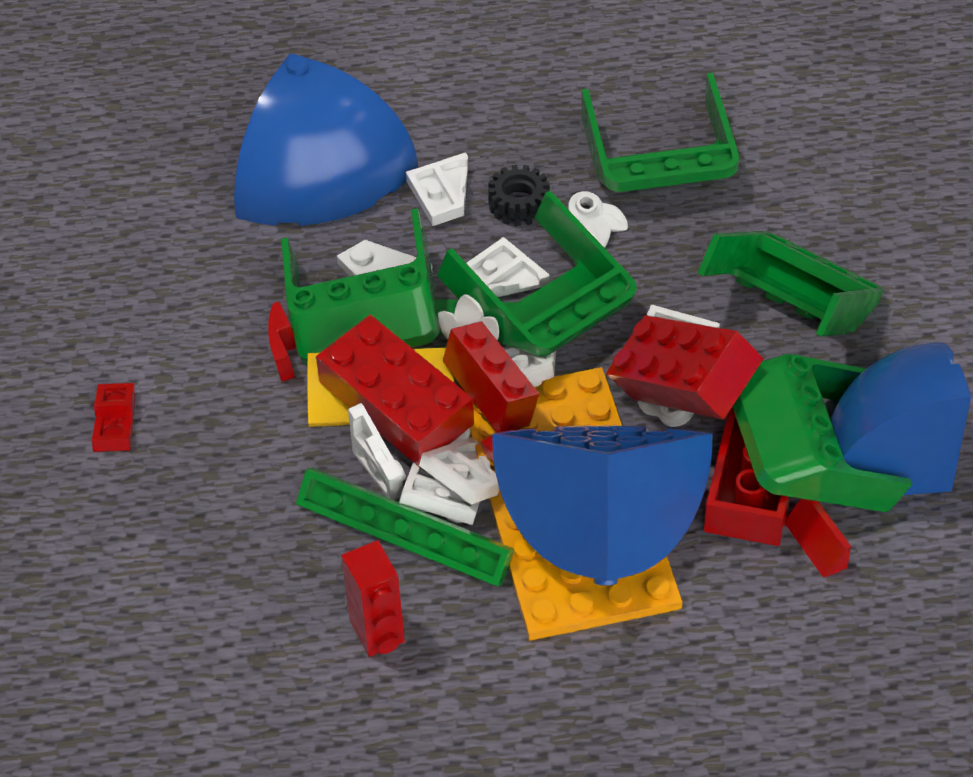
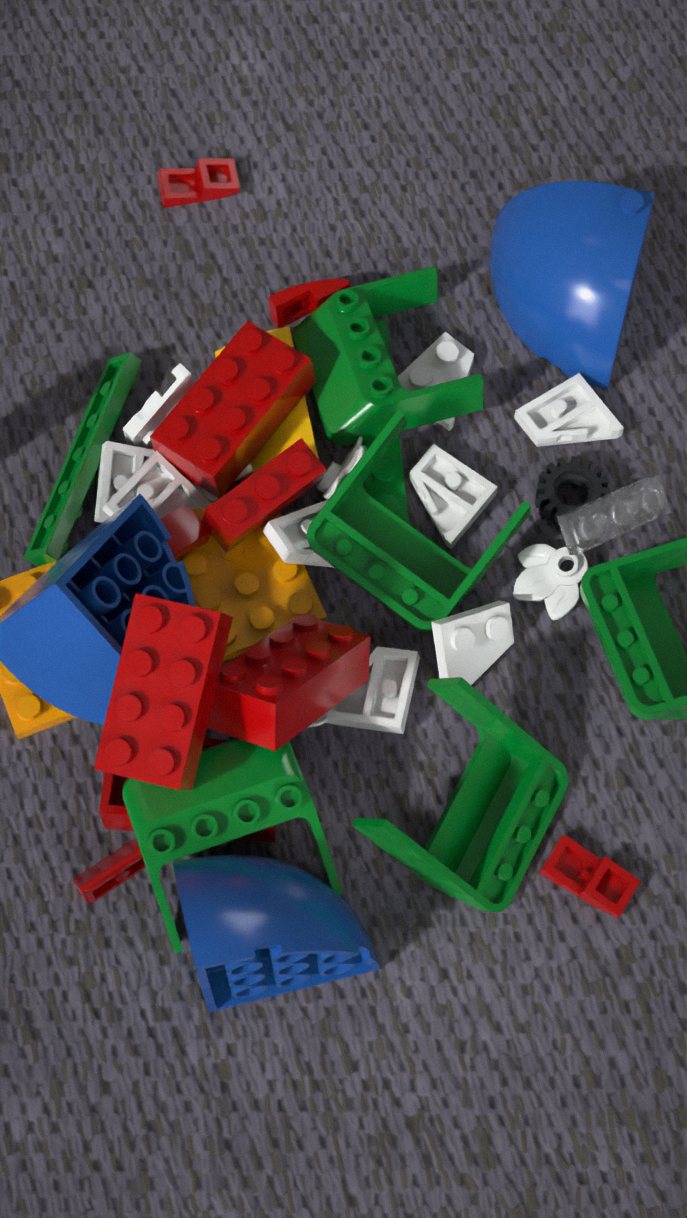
camera: 80 degrees right, 15 degrees up
(549, 164) = (614, 514): none -> clear plate
(649, 272) = (472, 640): none -> white wing
(713, 407) = (163, 692): none -> red brick
(857, 235) = (588, 877): none -> red slope

